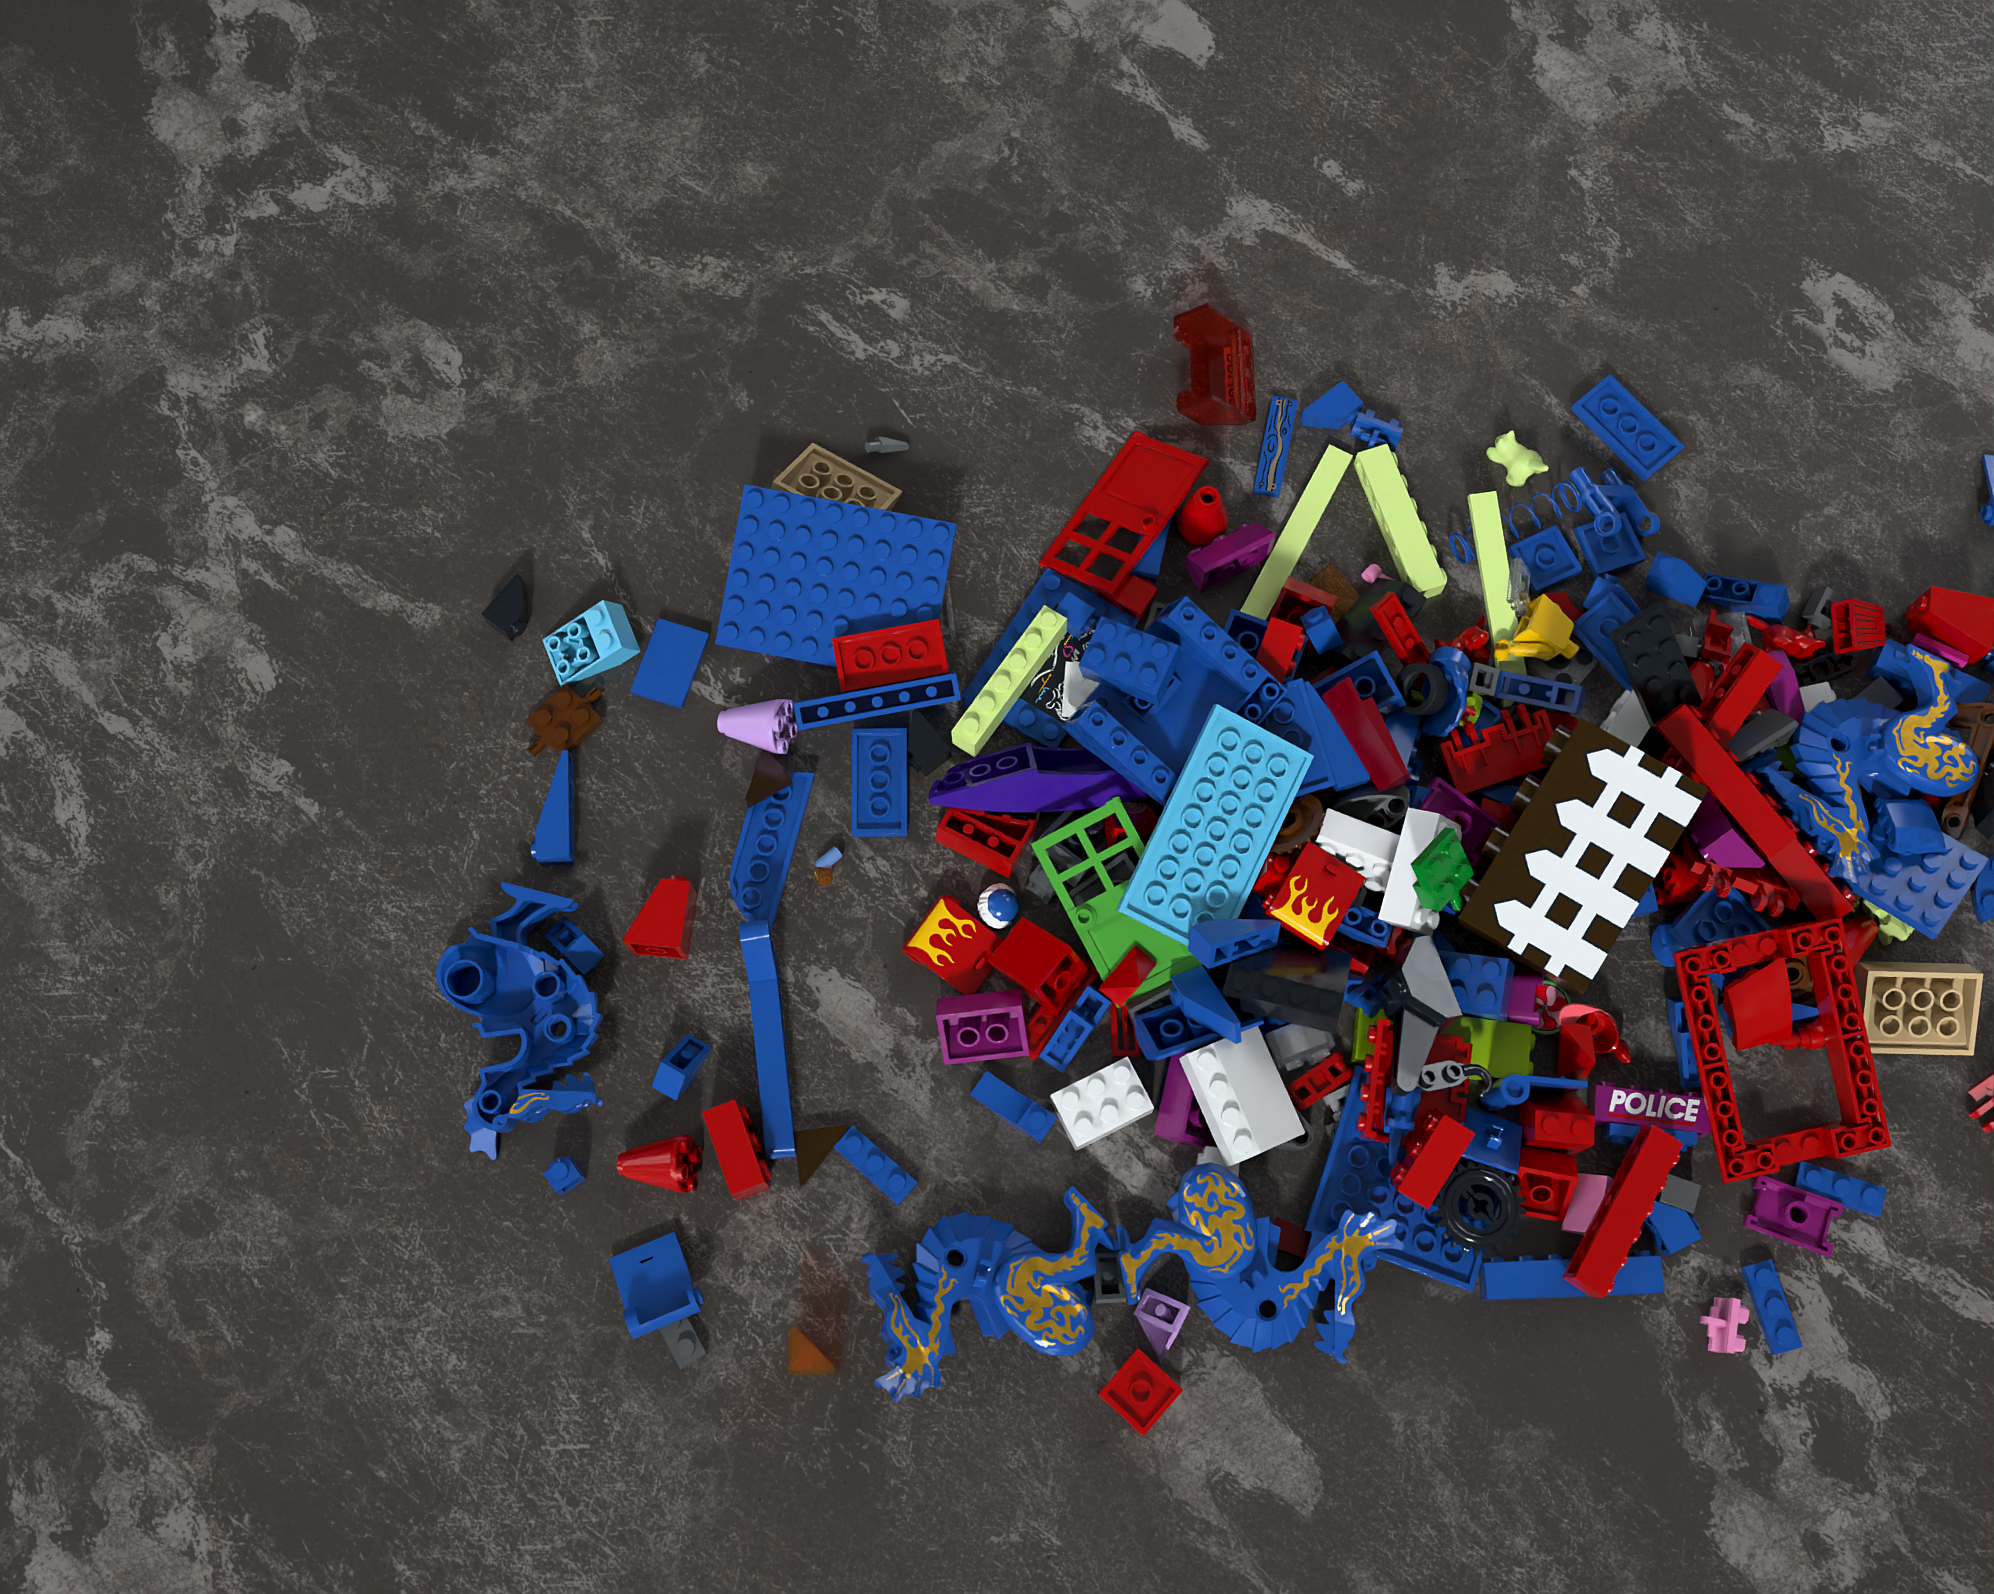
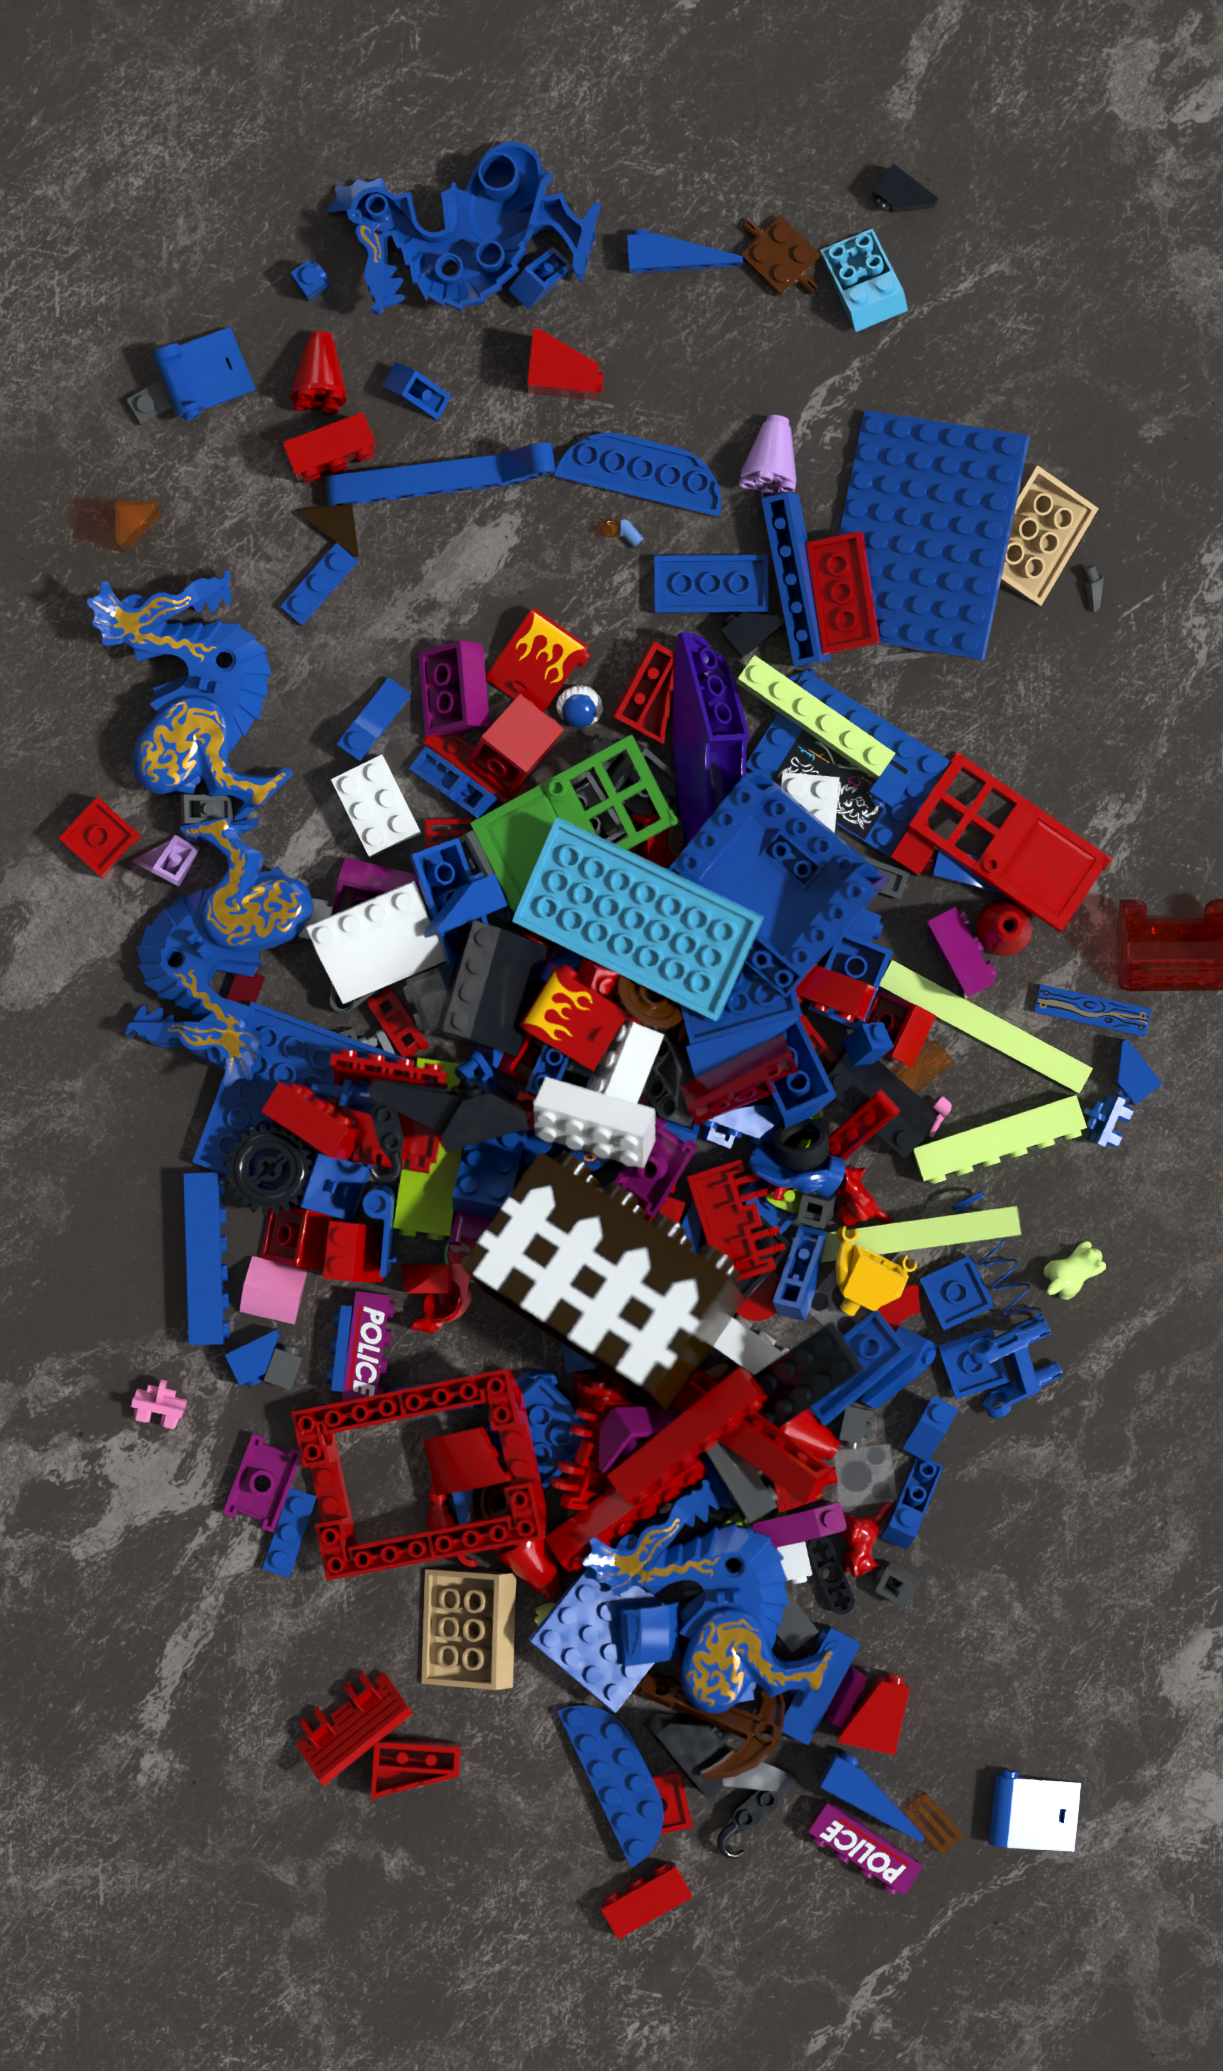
camera: 90 degrees right, 15 degrees up
(670, 663) = (844, 363): blue tile -> none
(767, 779) = (711, 468): dark brown tile -> none
(1127, 976) = (499, 832): red slope -> none
(1130, 661) = (817, 835): blue brick -> none
(1231, 939) = (527, 930): blue slope -> none
(1441, 872) = (583, 1135): green plate -> none
(1518, 587) = (917, 1255): clear tile -> none
(1623, 1211) = (263, 1306): red brick -> none
(1627, 428) = (1111, 1394): blue plate -> none
(1717, 639) = (862, 1465): red slope -> none
(1771, 1307) = (176, 1453): blue plate -> none
(1858, 626) = (870, 1613): red torso -> none

